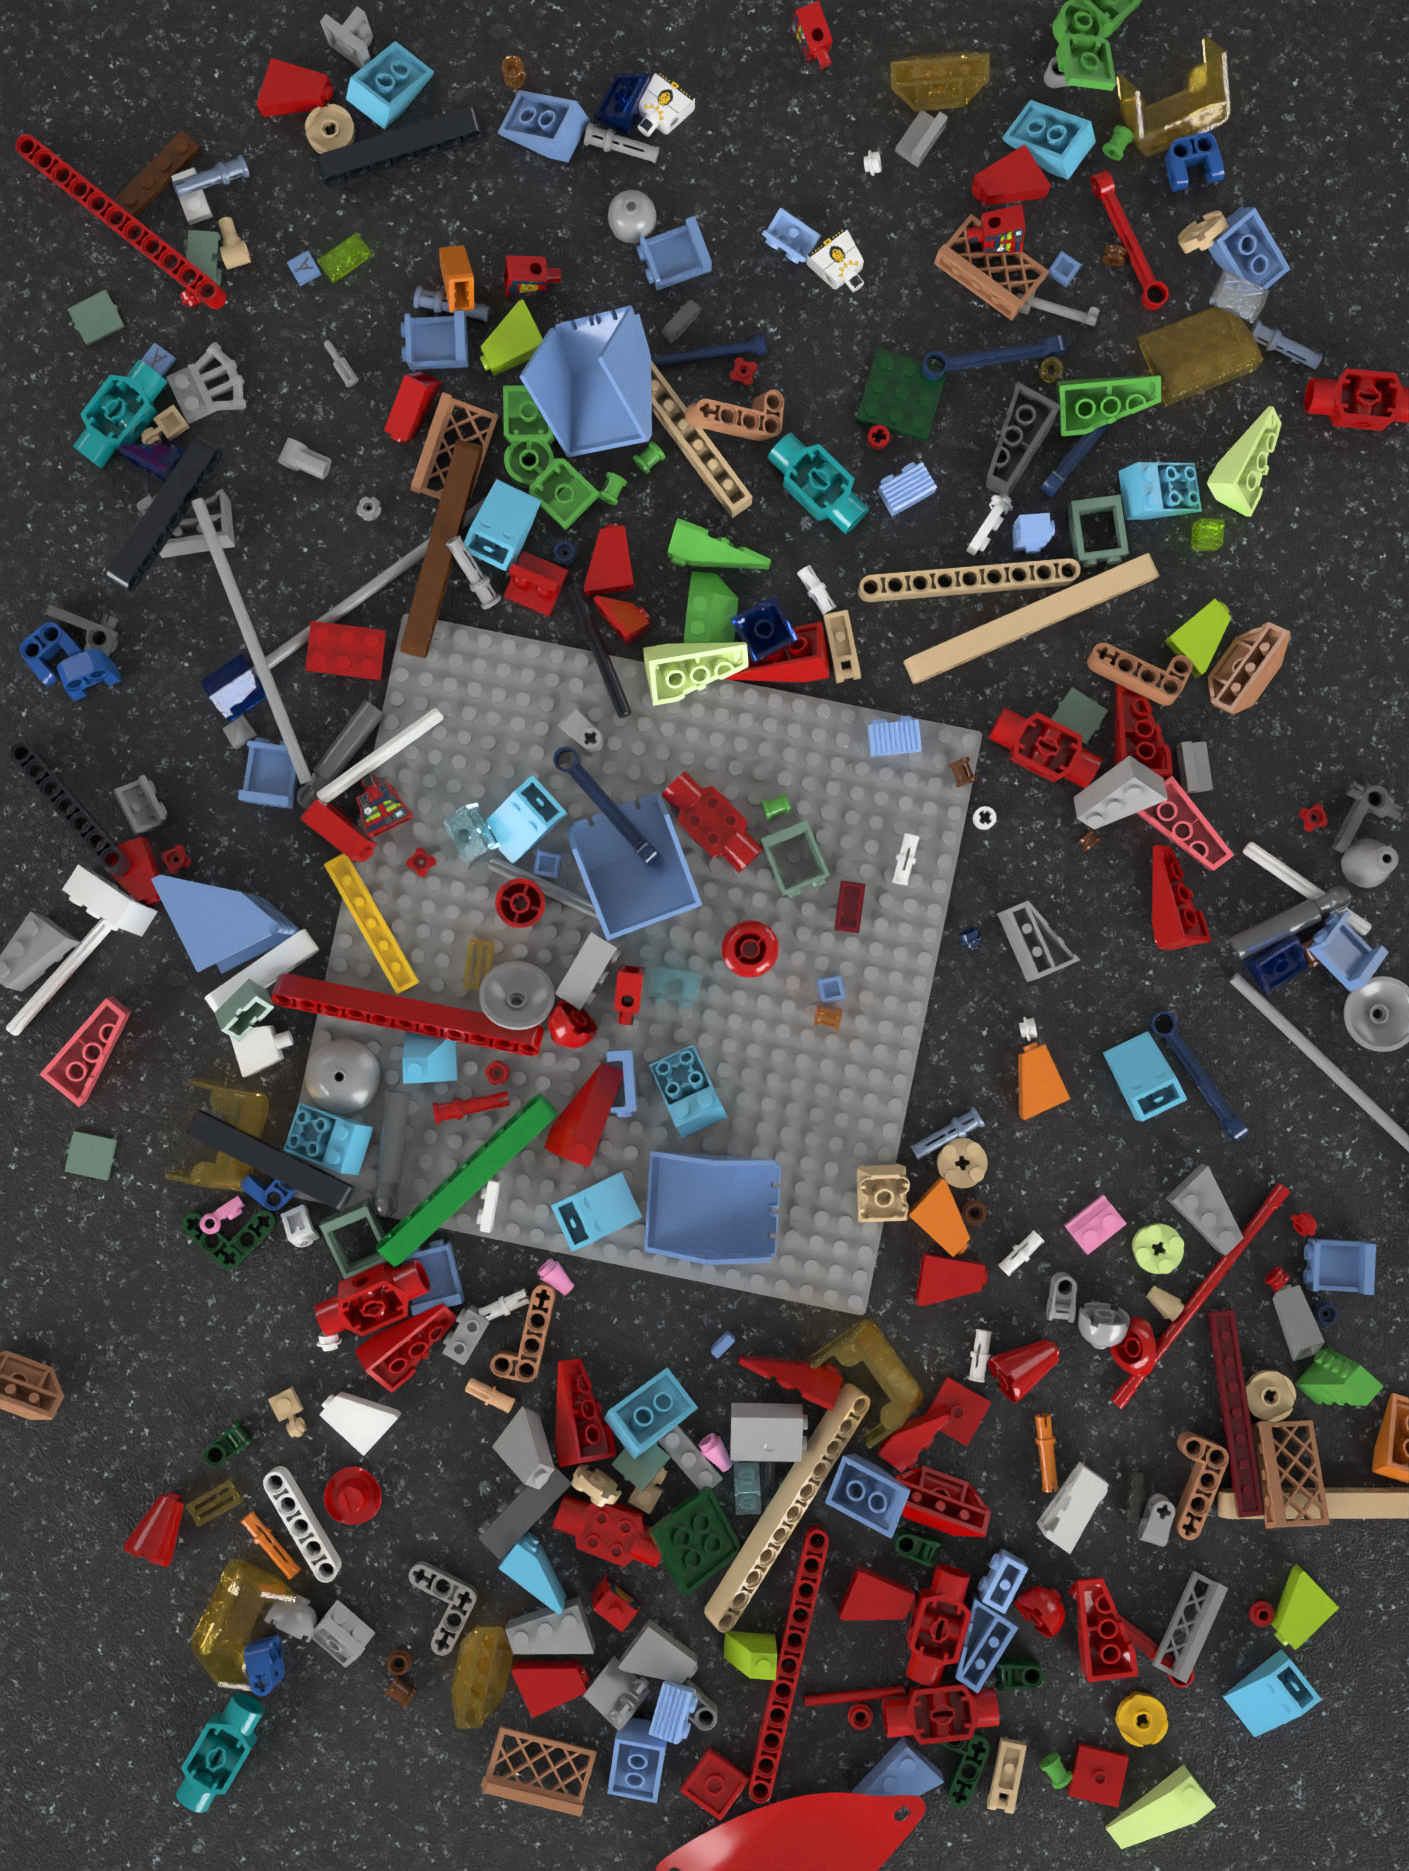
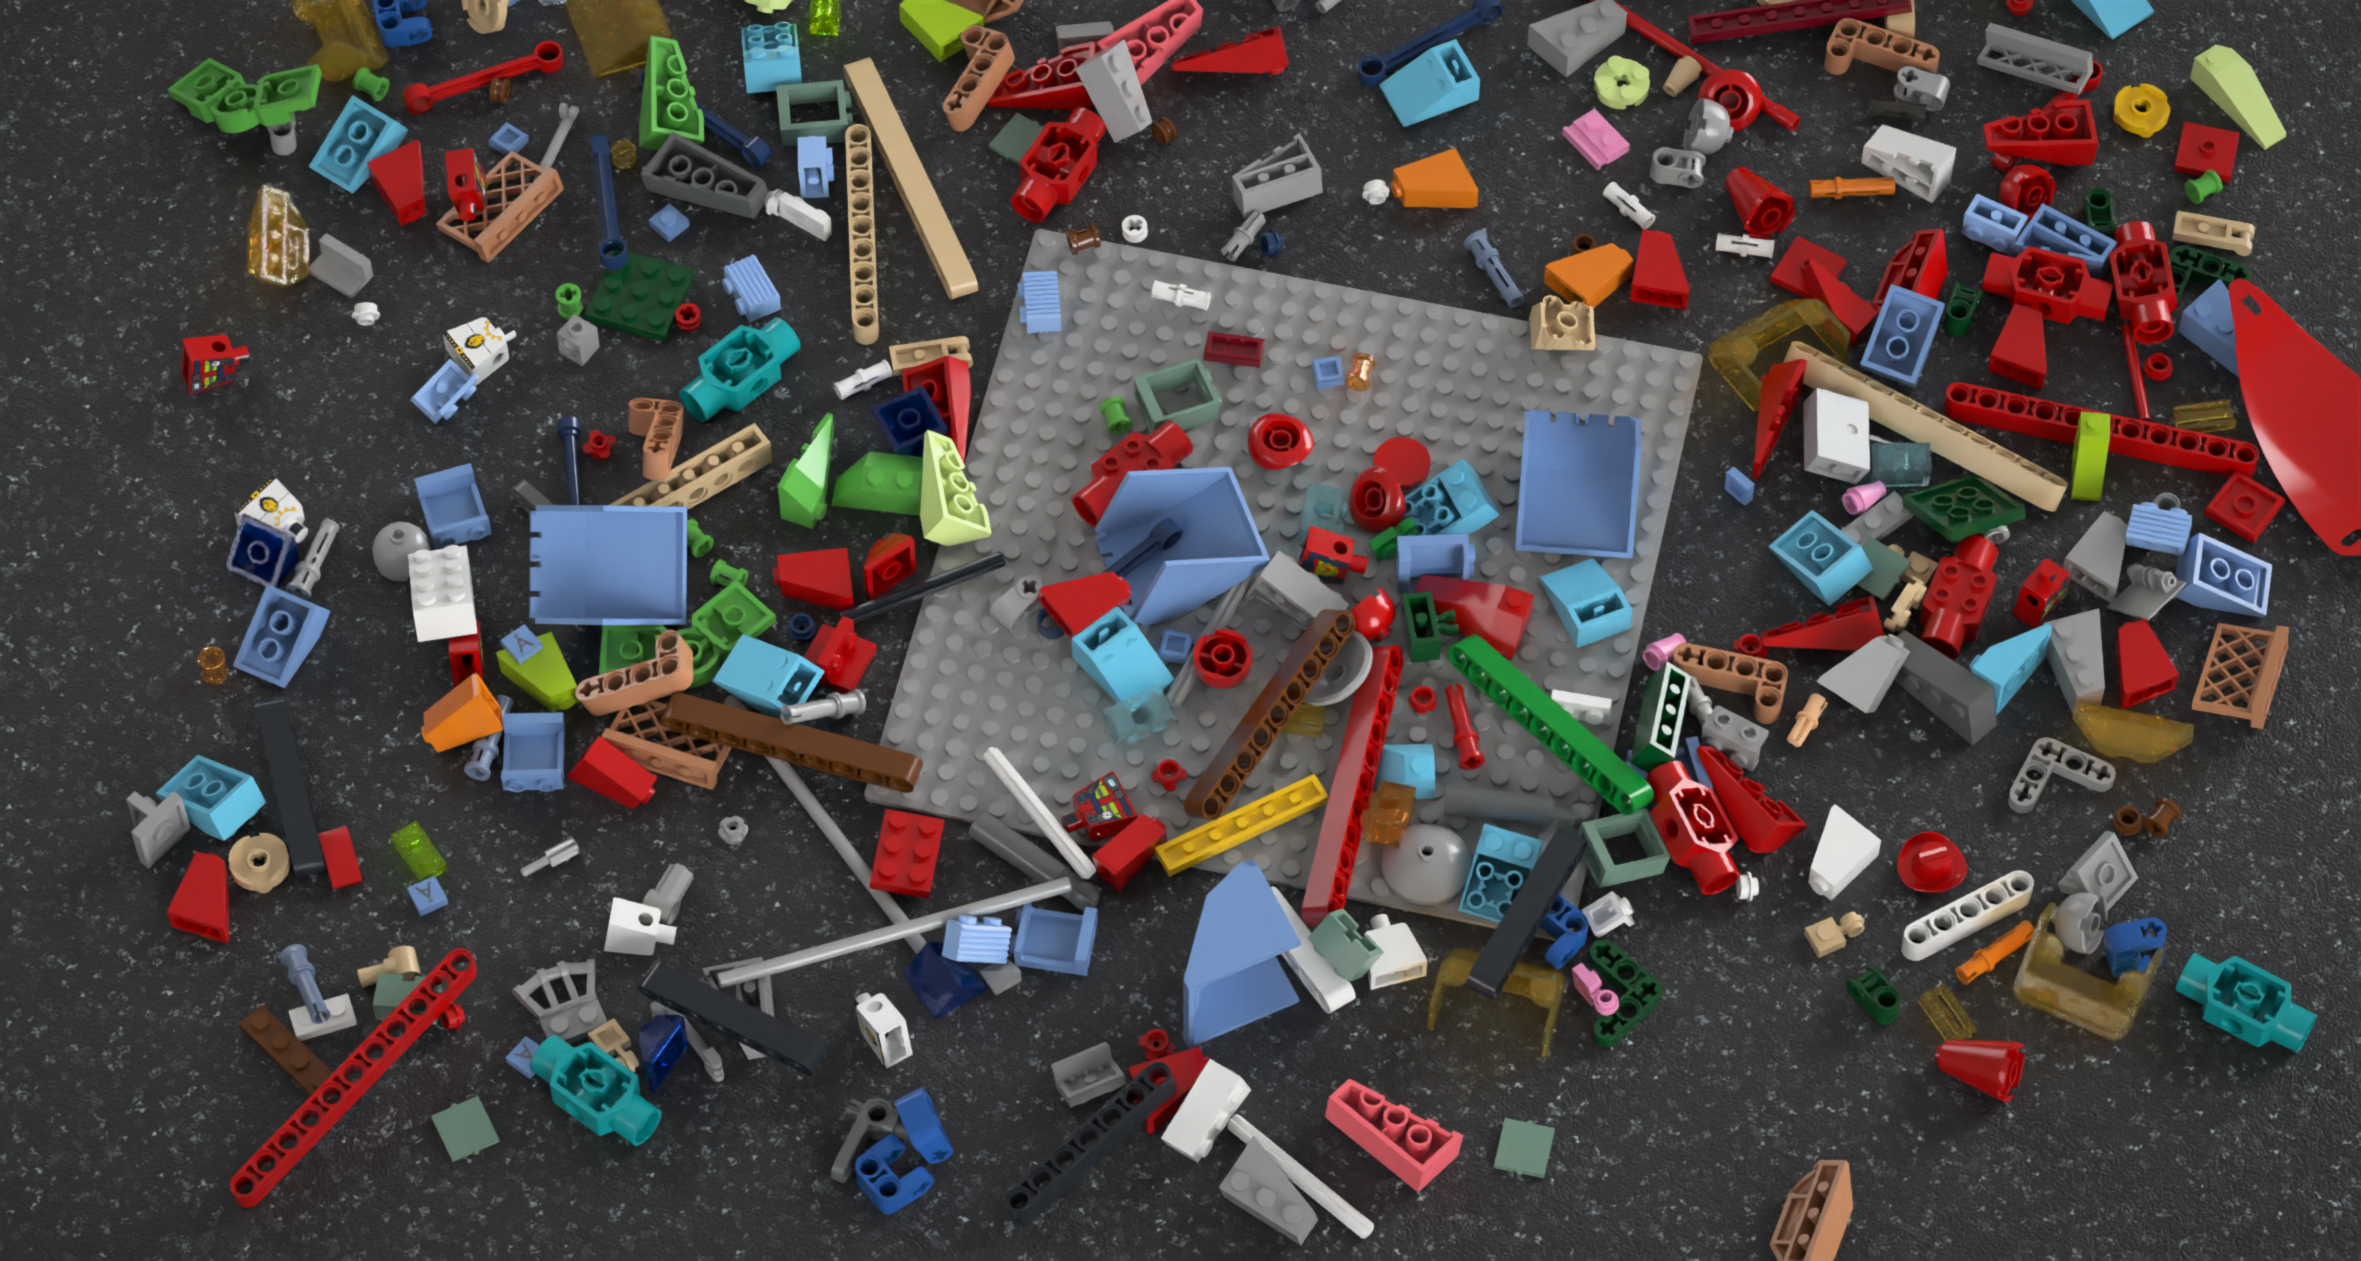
camera: 90 degrees left, 30 degrees down
(171, 637) = (877, 1017): none -> white torso
(251, 709) = (976, 941): none -> light blue brick
(263, 425) = (636, 928): none -> white torso
(335, 193) = (340, 858): none -> red slope
(392, 1046) = (1388, 813): none -> clear orange brick
(468, 944) = (1269, 714): none -> reddish brown beam
(473, 1273) = (1660, 718): none -> dark green brick
(498, 442) = (643, 681): none -> nougat beam
(527, 318) = (521, 644): none -> medium blue tile
(555, 1346) = (1750, 641): none -> red plate
(561, 1071) = (1424, 627): none -> dark green brick
(571, 247) = (442, 593): none -> white brick
(571, 785) = (1083, 600): none -> red slope
(646, 1041) = (1385, 544): none -> green plate
(690, 1031) = (1376, 500): none -> red hat
(736, 1053) = (1404, 460): none -> red tile
(812, 1774) = (2202, 414): none -> clear yellow tile
(846, 343) = (578, 340): none -> light grey brick
(892, 328) = (569, 301): none -> bright green bush
(973, 1172) = (1527, 245): tan plate -> none
(977, 913) = (1243, 235): none -> light grey axle
(979, 414) = (669, 222): none -> medium blue plate

